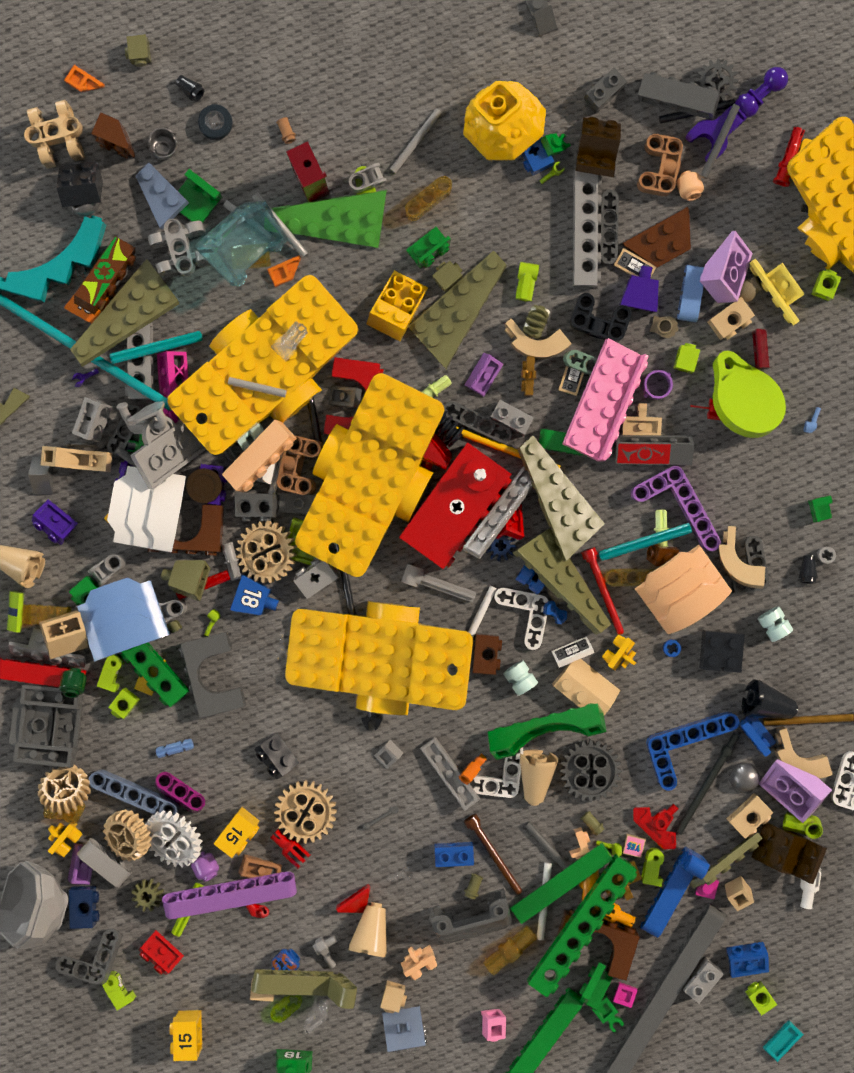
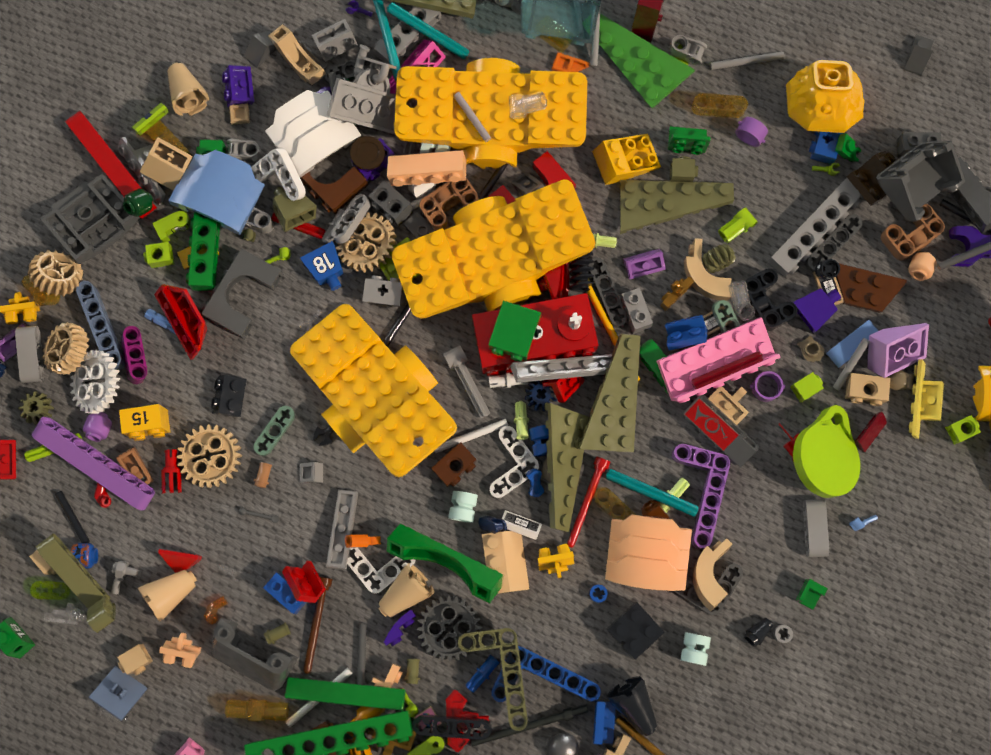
camera: 45 degrees right, 10 degrees down
(75, 542) = (239, 114): none -> tan tile
(143, 555) = (276, 159): none -> white beam
(190, 733) = (183, 317): none -> red wedge
(245, 550) = (358, 207): none -> light grey beam
(250, 944) = (72, 517): none -> black bar
(341, 763) = (262, 440): none -> sand green beam
(356, 788) = (263, 475): none -> medium nougat pin
(412, 913) = (212, 608): none -> clear orange arm
(443, 523) = (514, 331): none -> green panel
(460, 836) = (304, 582): none -> red bracket
(462, 559) = (504, 380): none -> white pin
(471, 197) = (751, 131): none -> medium lavender piece
(503, 576) = (521, 420): none -> yellowish green axle
(553, 671) = (492, 524): none -> dark blue bar
(556, 808) = (395, 633): none -> dark purple slope
(564, 401) = (686, 332): none -> blue bracket
(581, 339) = (740, 299): none -> clear piece
(619, 402) = (727, 370): none -> dark red axle
(627, 254) = (831, 266): none -> black wheel
(631, 121) = (921, 176): none -> dark grey windscreen
(642, 779) = (482, 673): none -> blue axle
(658, 838) = (452, 727): none -> black beam
(660, 761) = (506, 668): none -> olive beam
(704, 312) = (851, 364): none -> light grey bar
(784, 457) = (816, 528): none -> light grey beam

